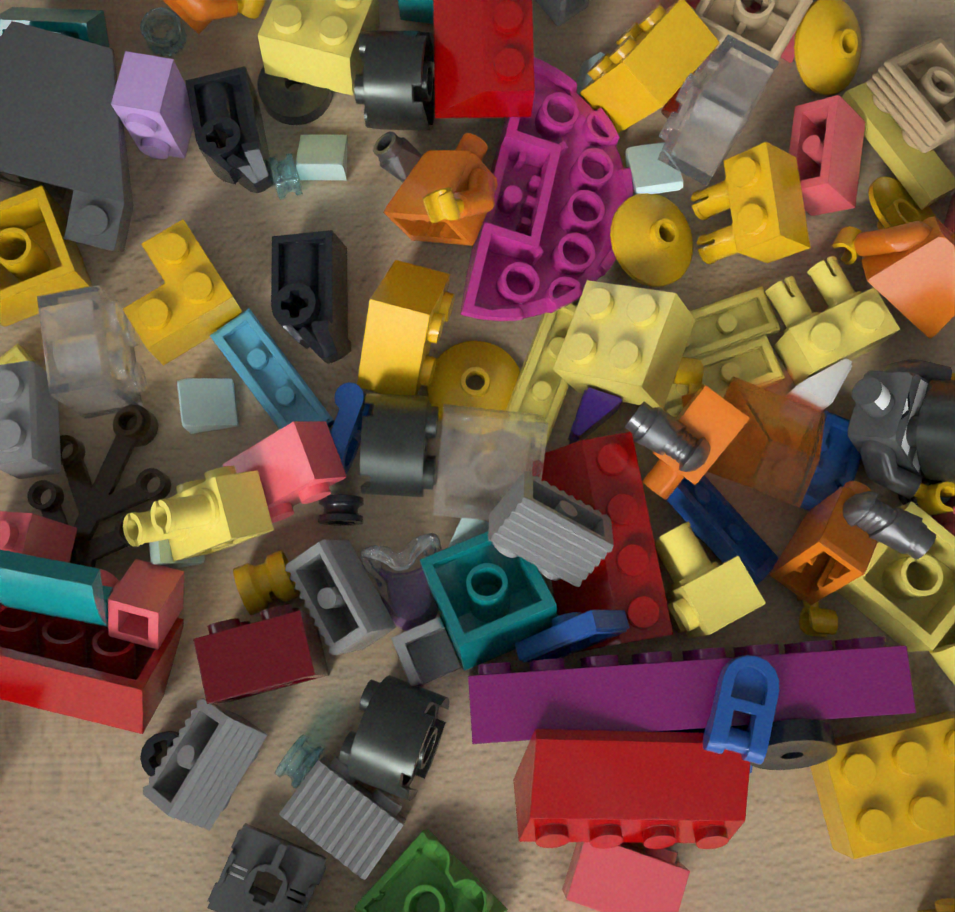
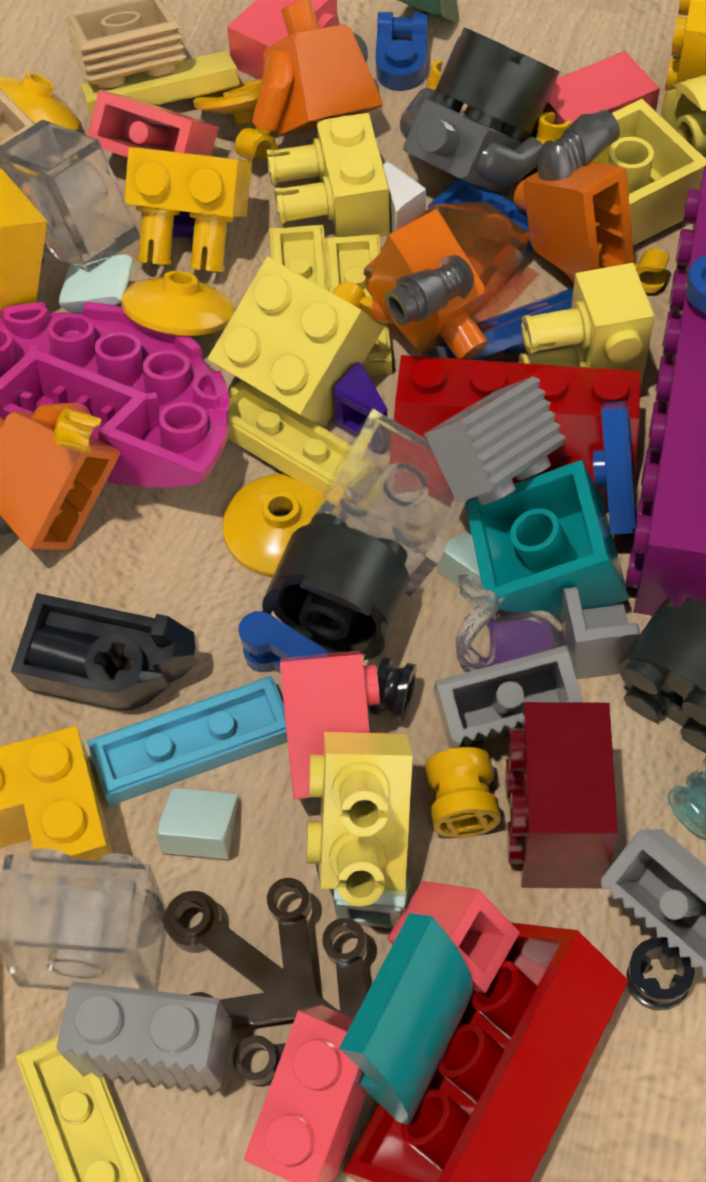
camera: 70 degrees left, 20 degrees down
(401, 325) = (196, 551): yellow brick -> none

